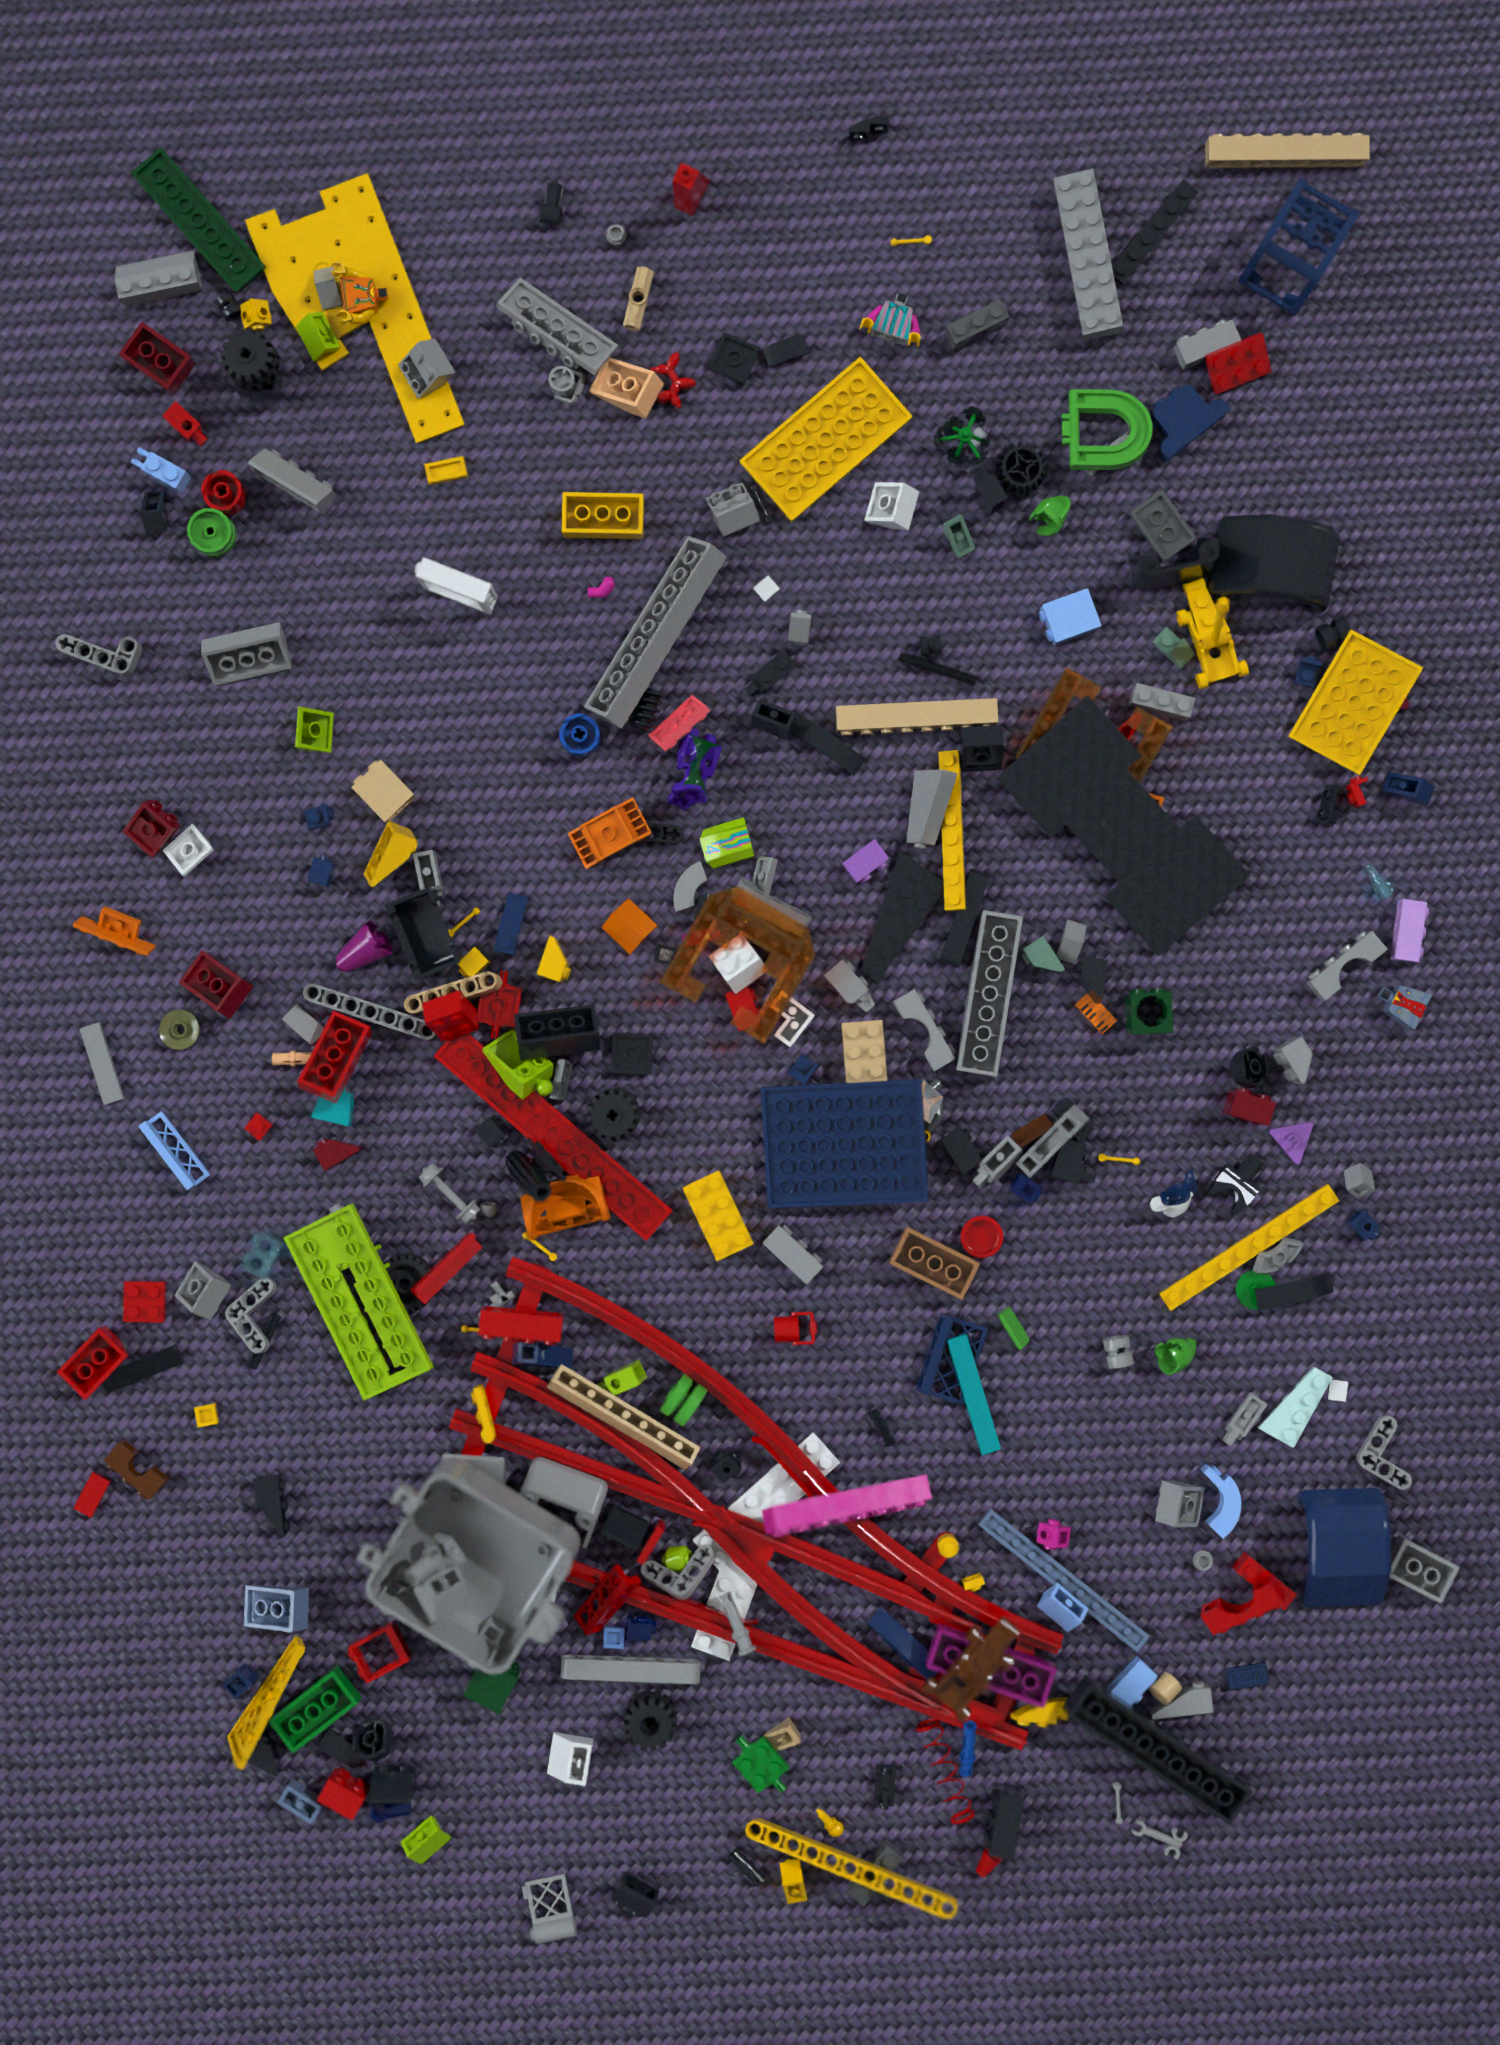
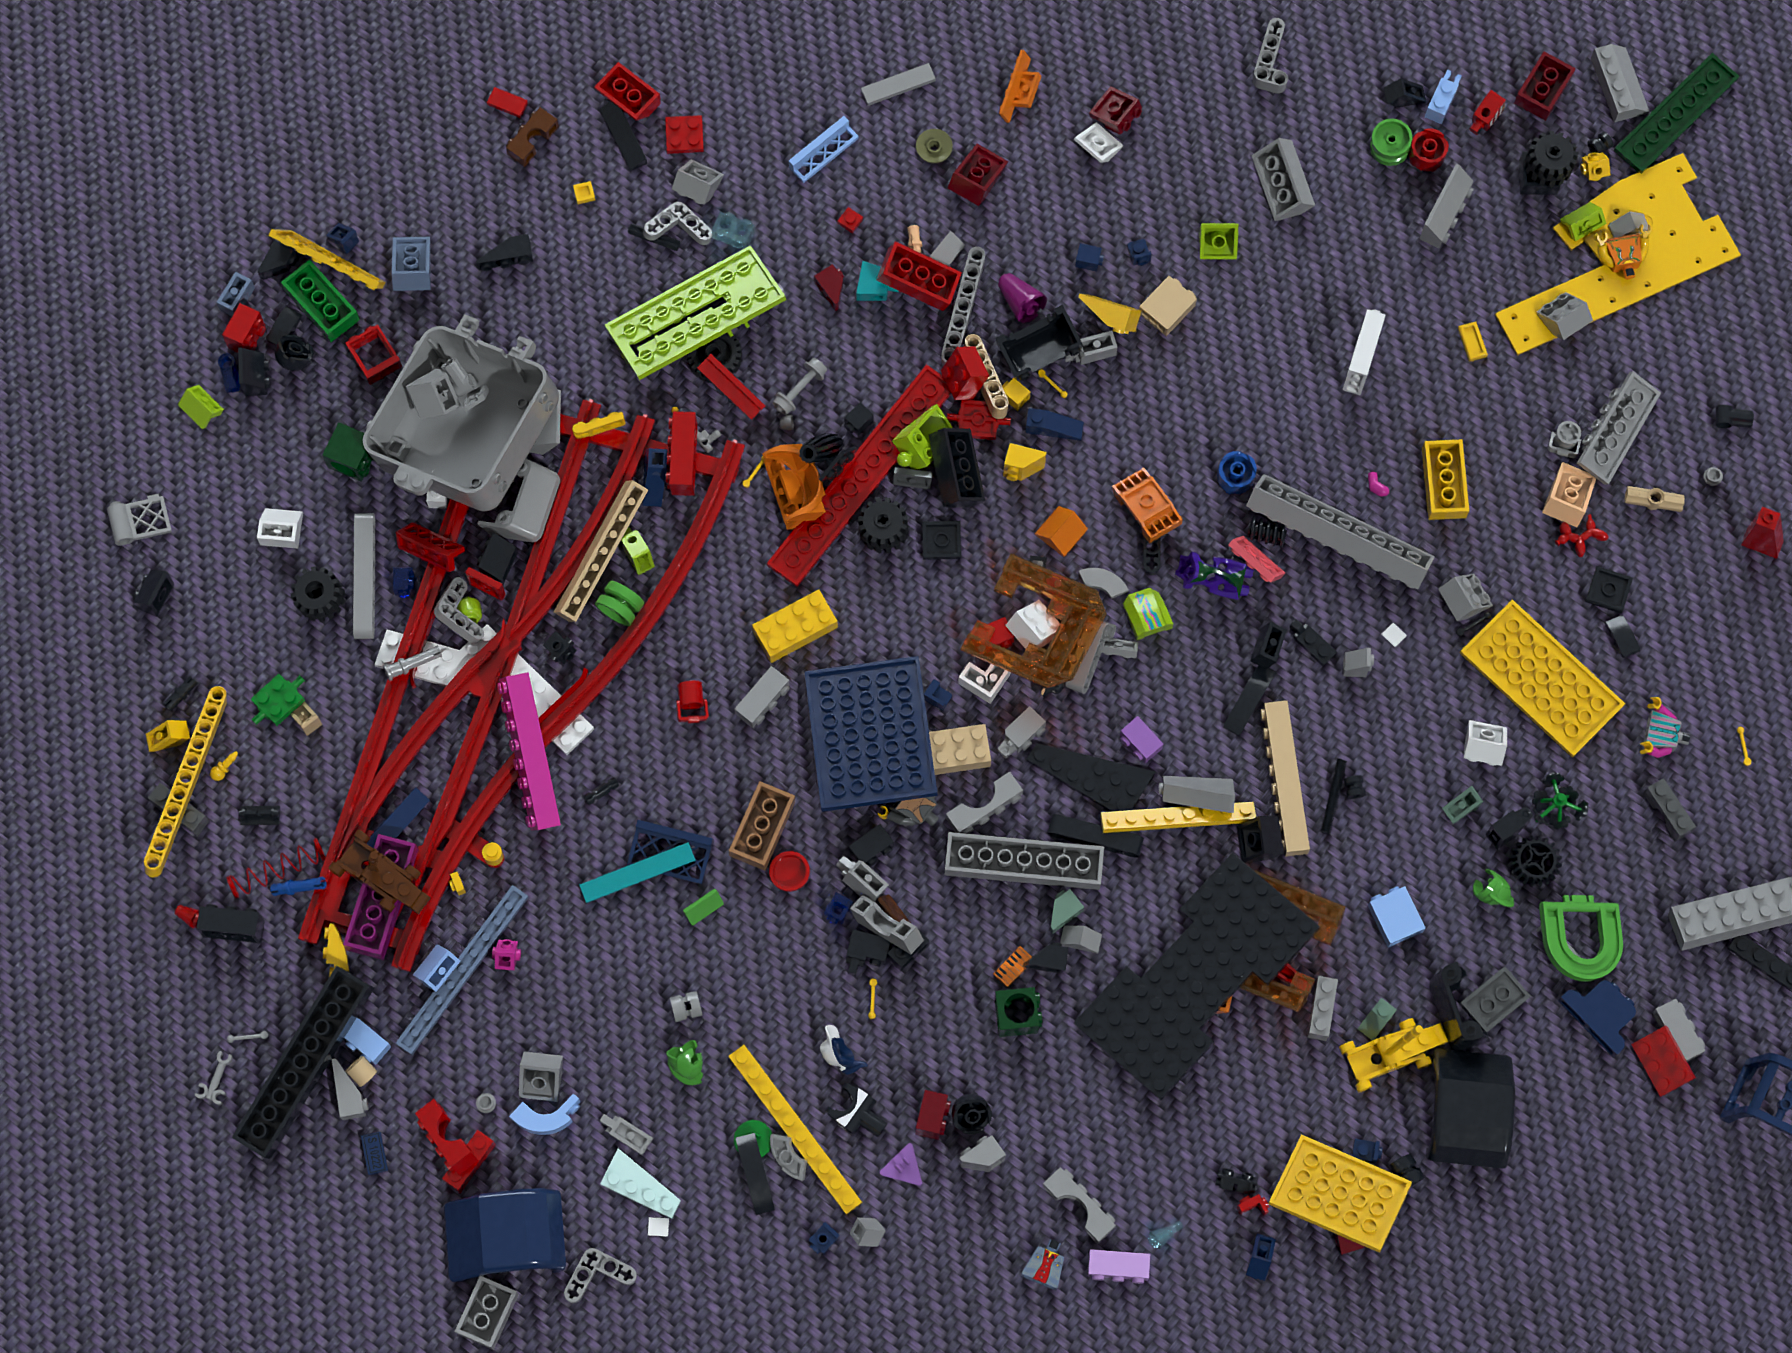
camera: 80 degrees right, 15 degrees down
(614, 1637) = (393, 559): medium blue plate -> none

